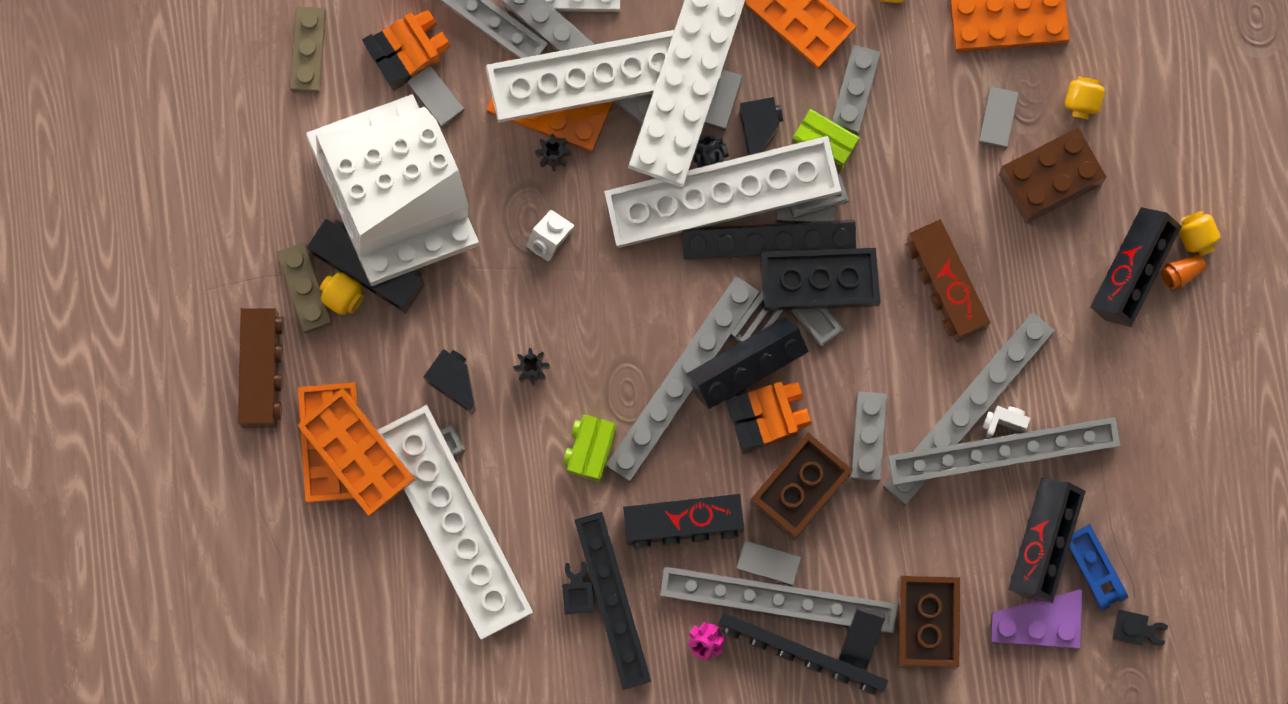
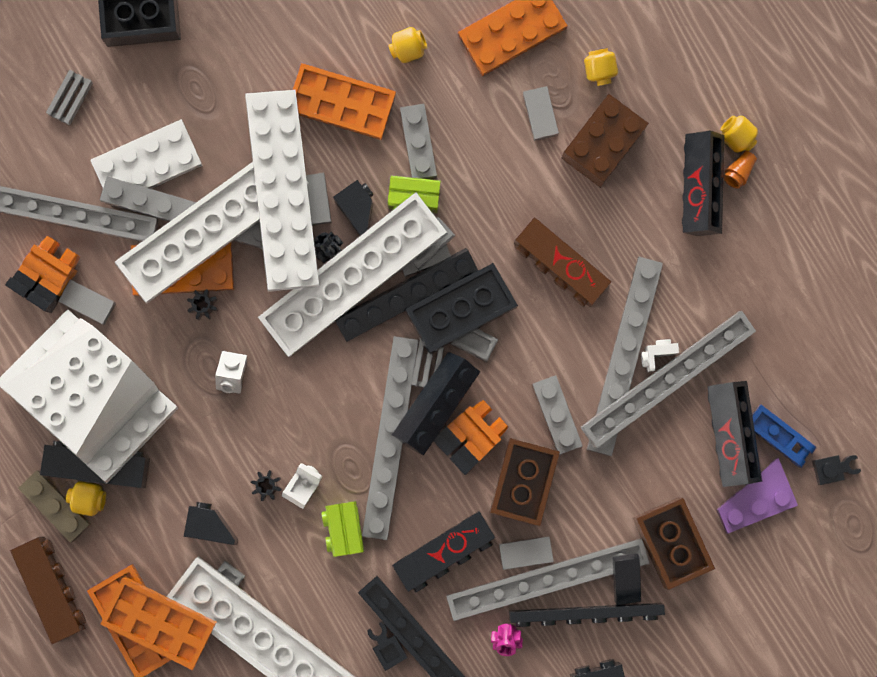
camera: 30 degrees left, 5 degrees up
(569, 384) = (302, 485): none -> white bracket

